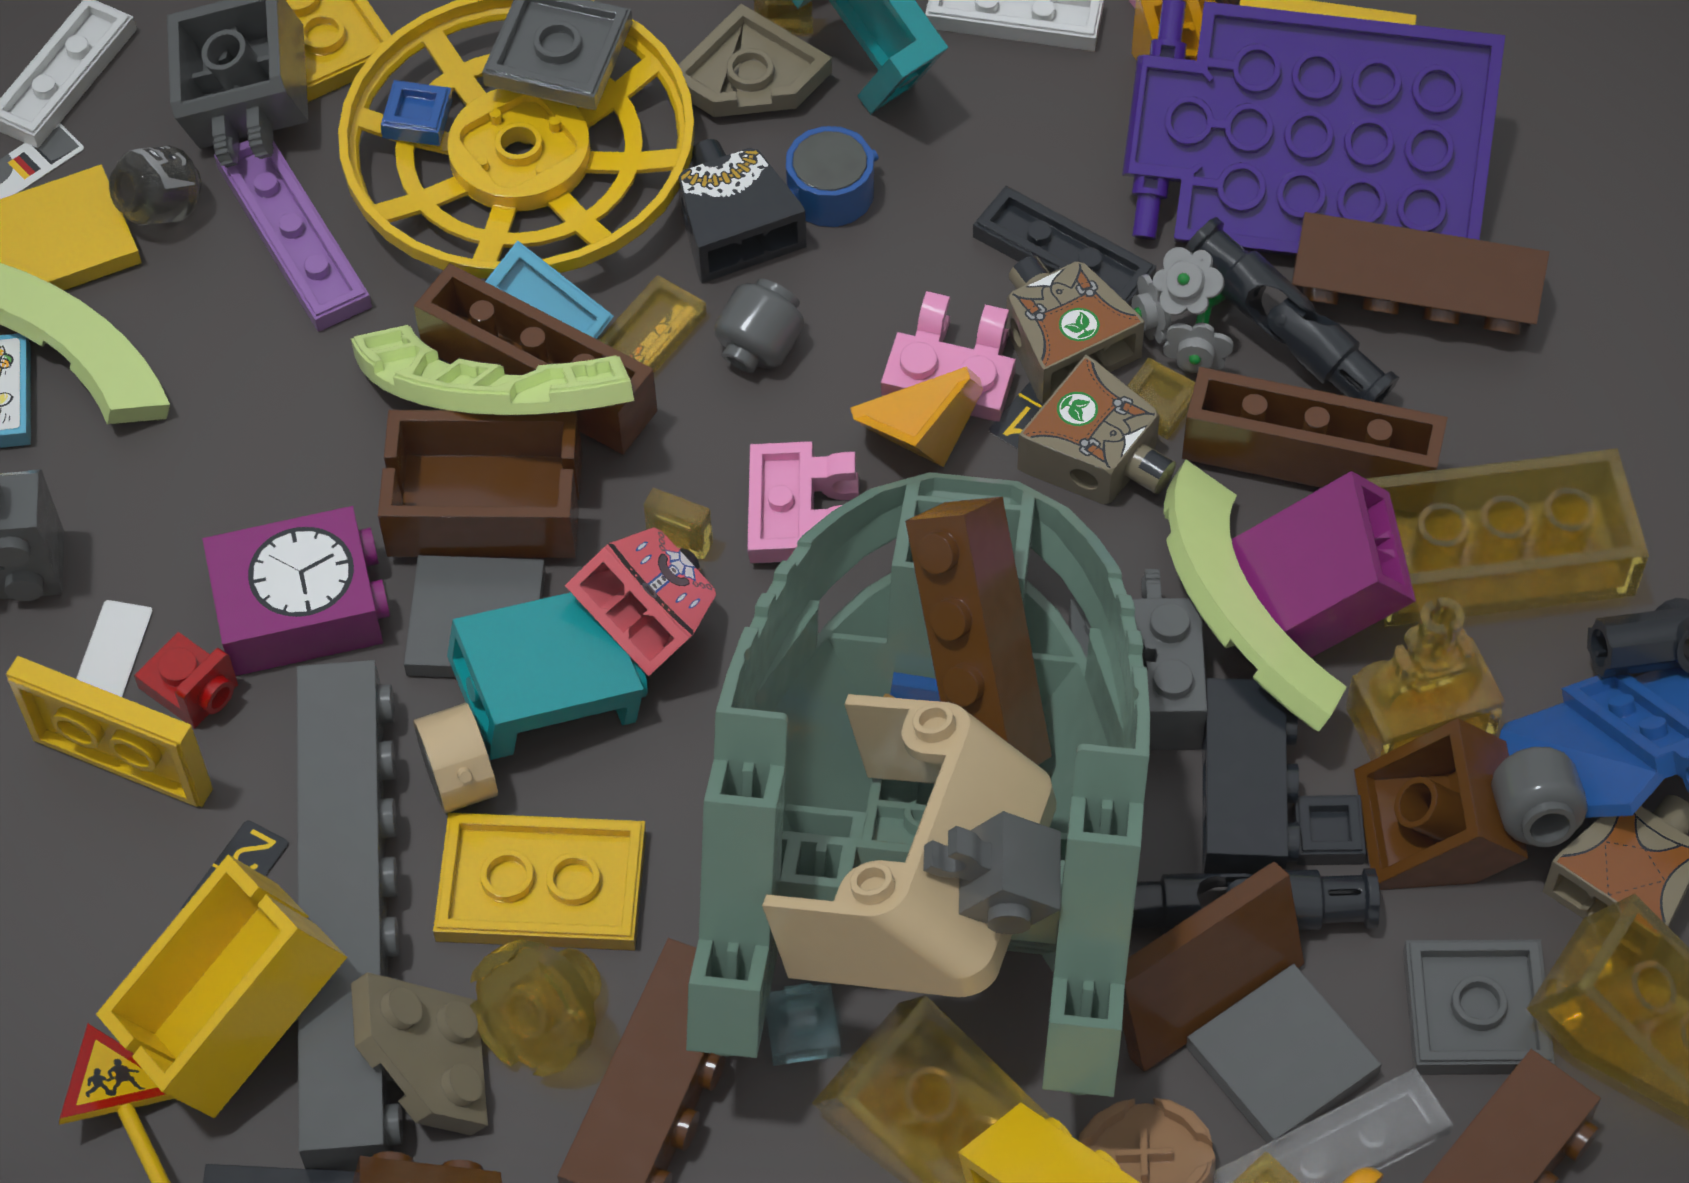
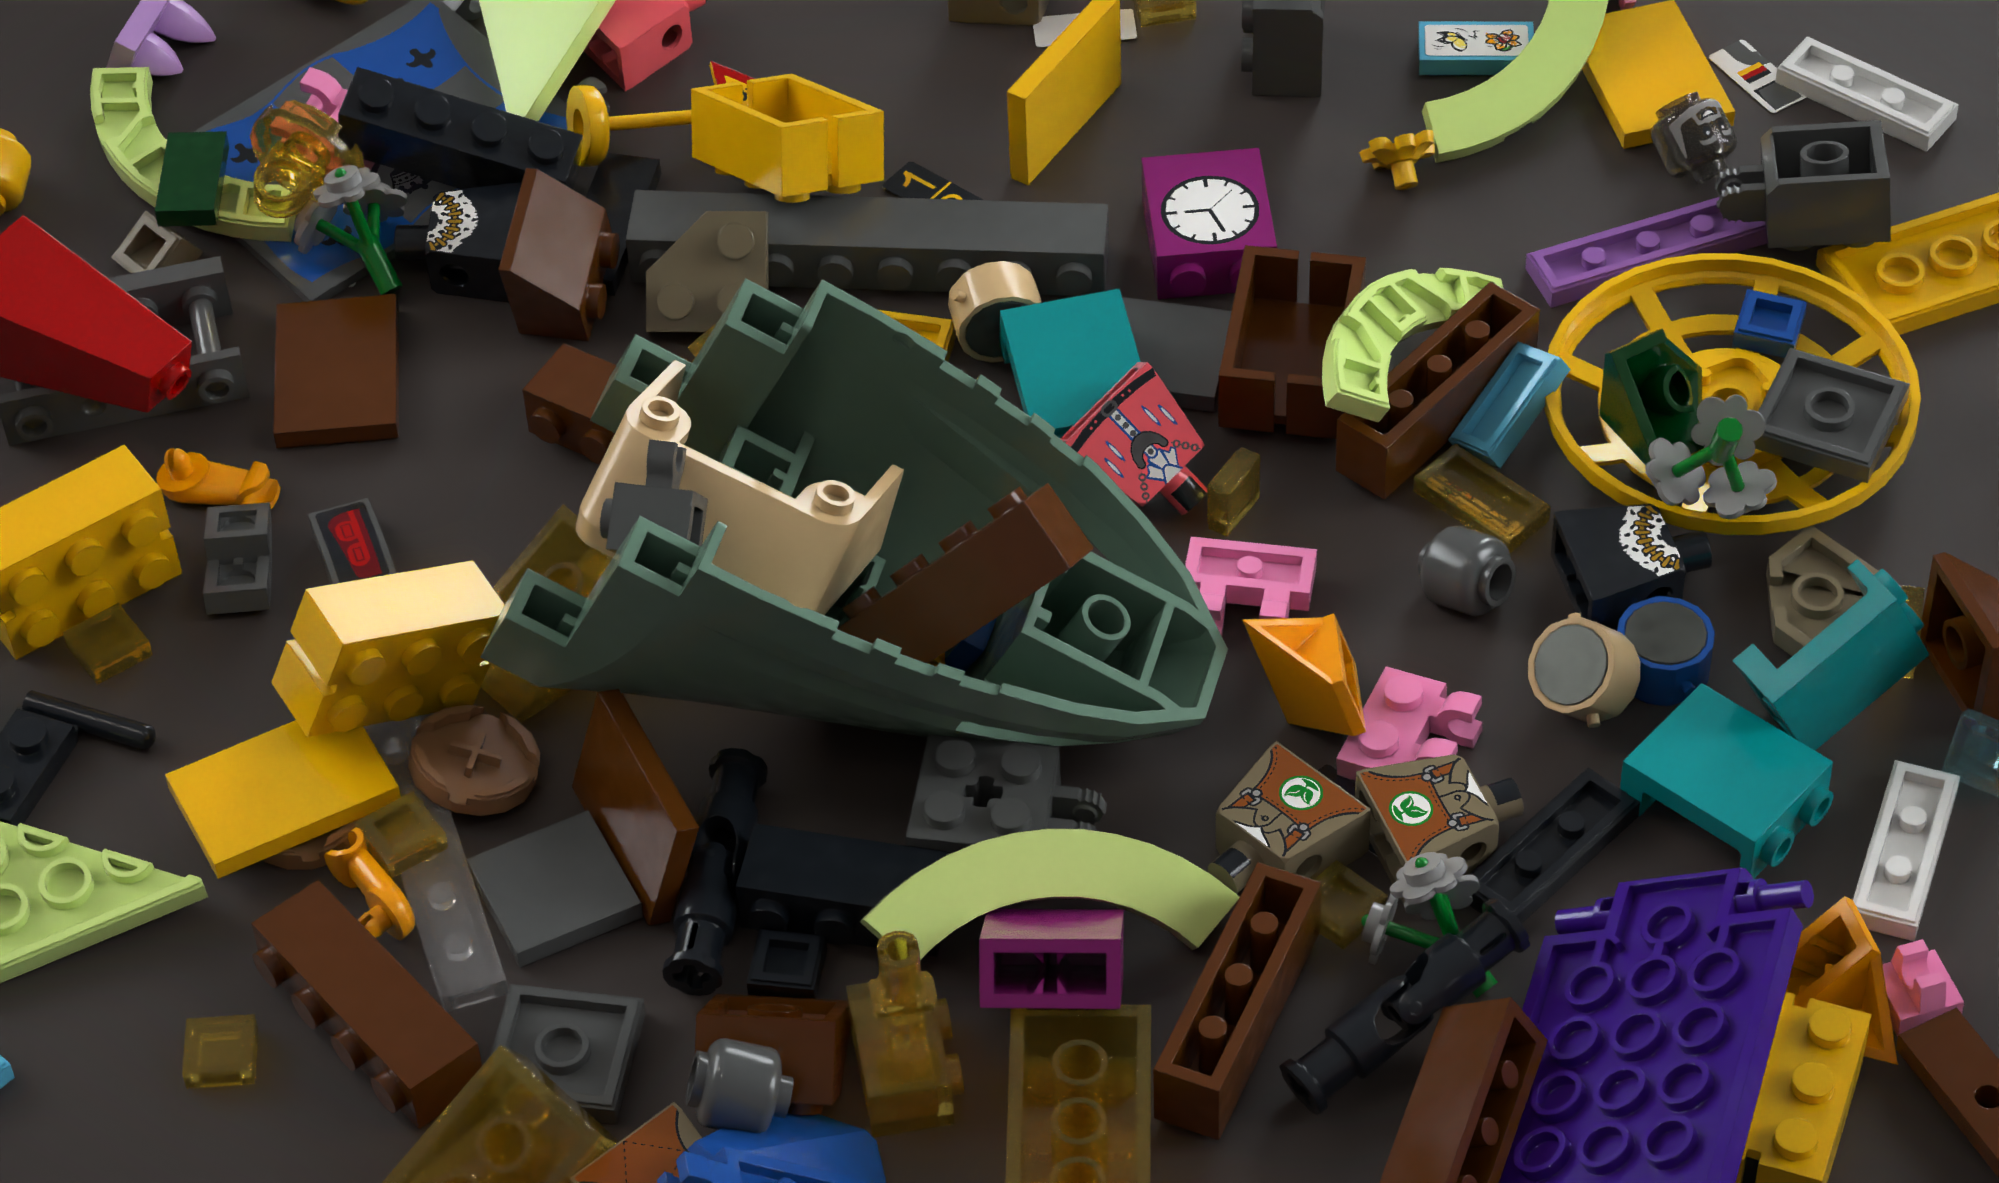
camera: 100 degrees right, 10 degrees down
(114, 646) = (1183, 124): white sticker -> none
(177, 434) = (1400, 155): none -> yellow plant
(188, 679) = (1119, 162): red bracket -> none
(570, 169) = (1651, 393): none -> dark green slope
(665, 101) = (1727, 433): none -> light grey plant
(881, 218) = (1584, 670): none -> piece
(976, 119) = (1731, 777): none -> teal panel

